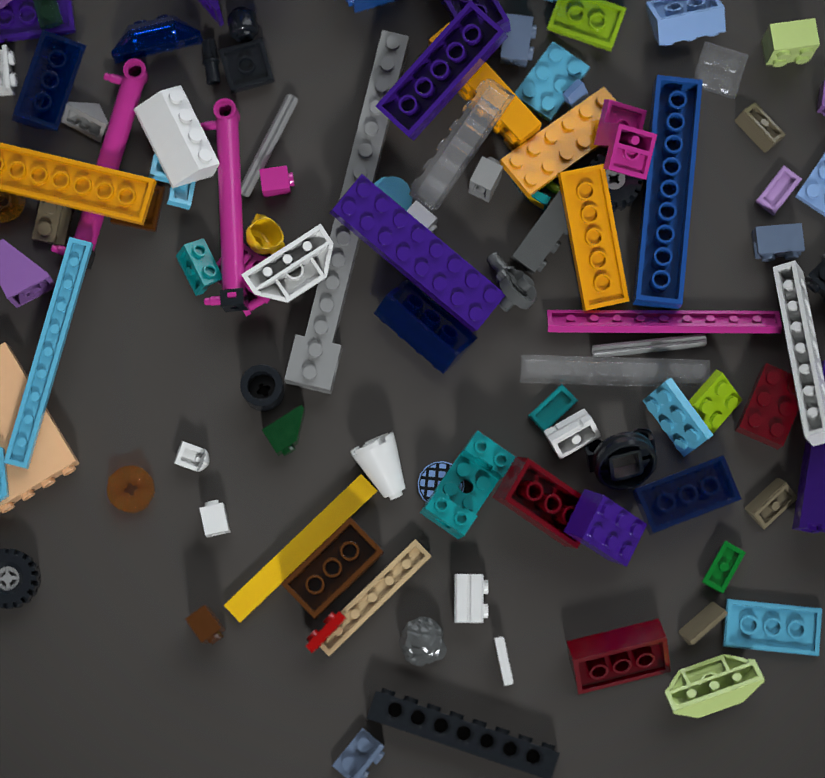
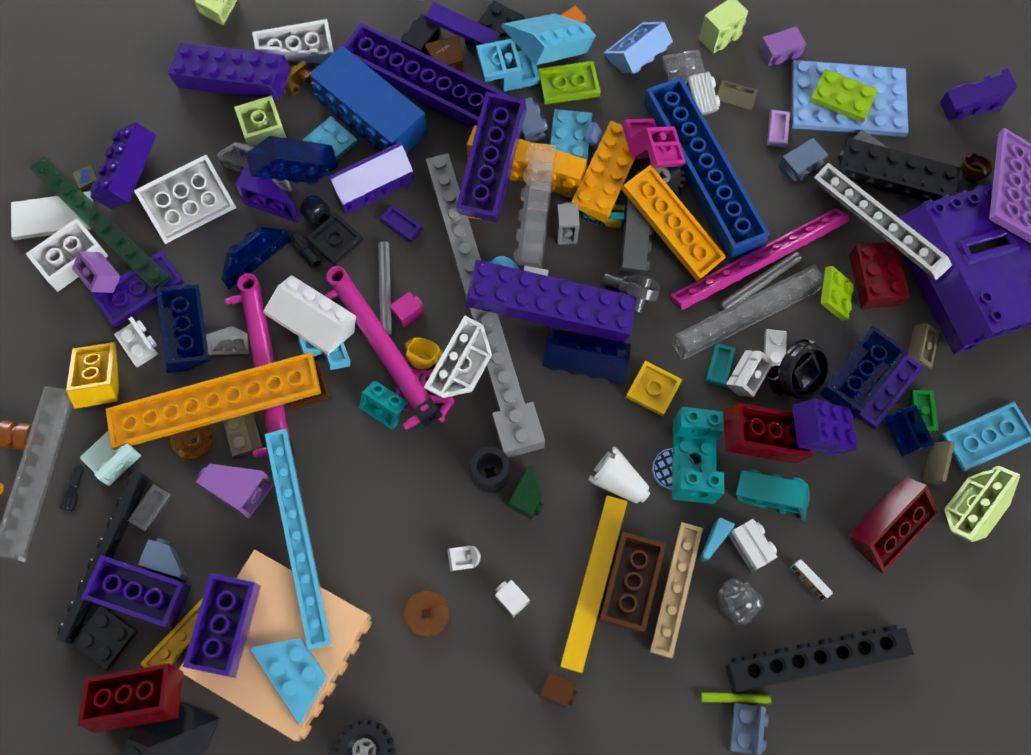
camera: 30 degrees left, 10 degrees down
(317, 22) = (372, 178): none -> slope
(322, 84) = (401, 223): none -> dark purple tile
(331, 623) = (657, 646): red plate -> none
(366, 724) = (735, 698): none -> lime bar
(440, 571) = (718, 533): none -> medium azure slope
(471, 395) = (654, 388): none -> yellow plate
(520, 562) = (774, 492): none -> teal wedge
(618, 420) = (775, 345): none -> white plate
(677, 417) = (819, 318): medium azure plate -> none
(692, 577) = (909, 430): none -> clear blue brick
(703, 529) = (890, 391): none -> dark purple plate
(716, 110) = (702, 90): none -> white brick

